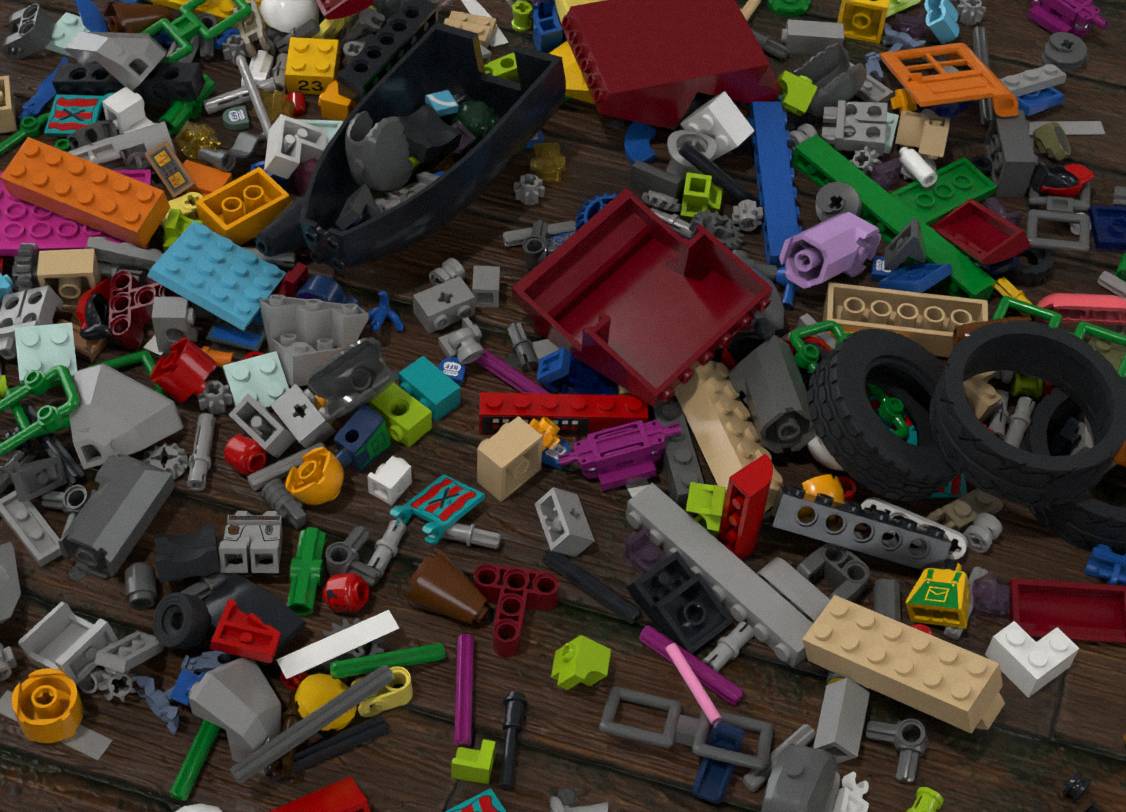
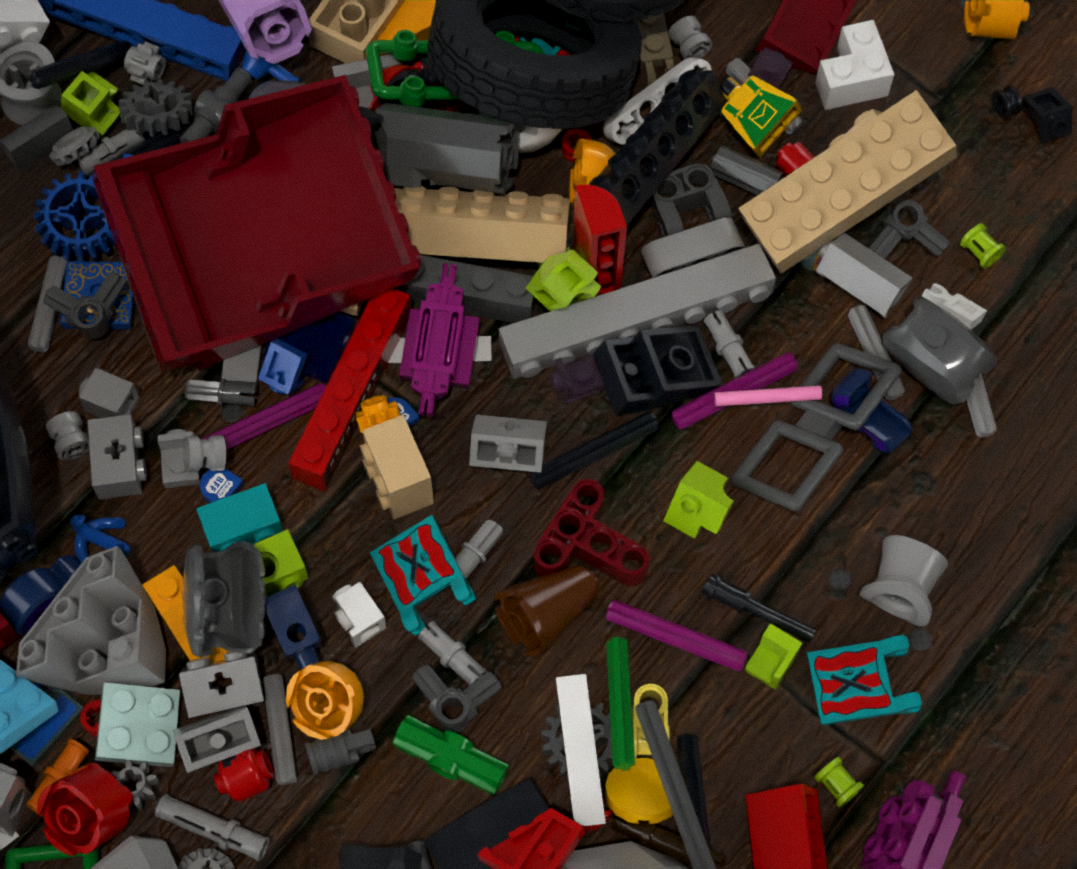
camera: 65 degrees left, 15 degrees up
(254, 539) = (388, 803): light grey hips -> none
(346, 592) = (502, 719): red head -> none

